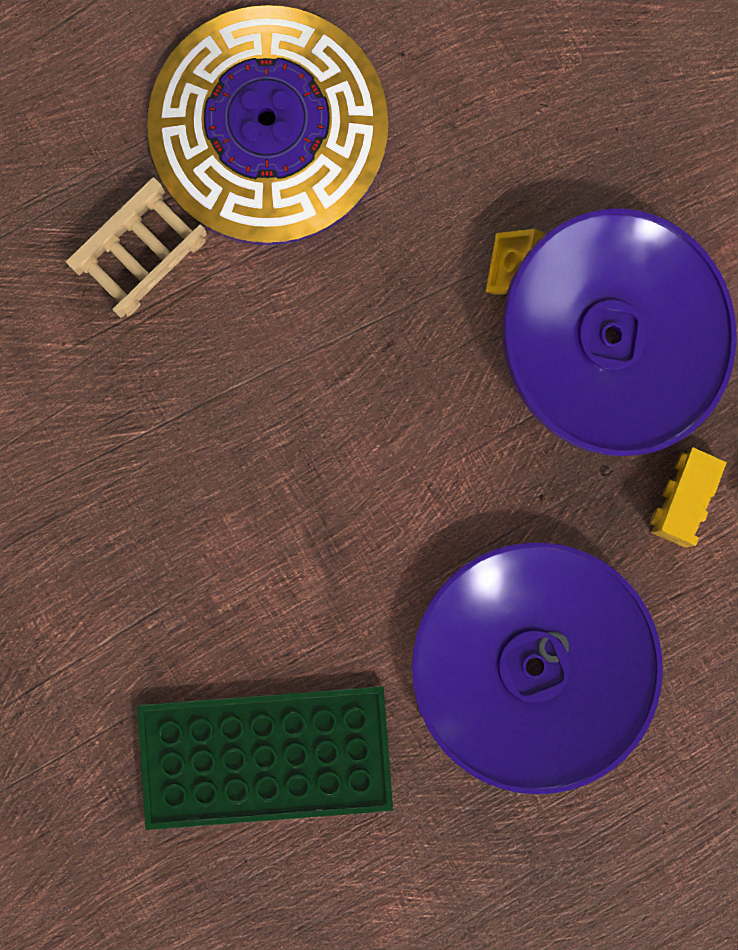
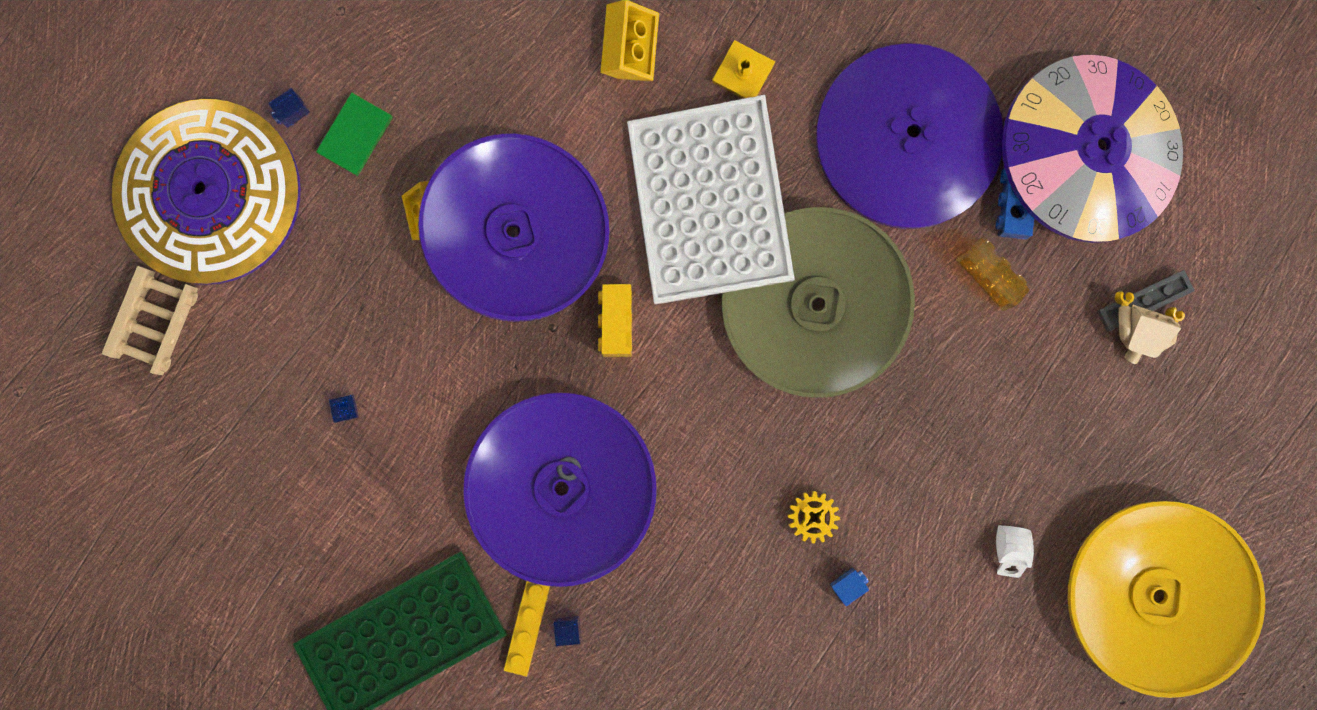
camera: 20 degrees left, 0 degrees up
(317, 454) = (343, 408): none -> clear blue tile
(409, 70) = (288, 108): none -> clear blue brick
(419, 812) = (526, 628): none -> yellow plate
(468, 839) = (567, 631): none -> clear blue brick
(472, 135) = (354, 134): none -> green tile

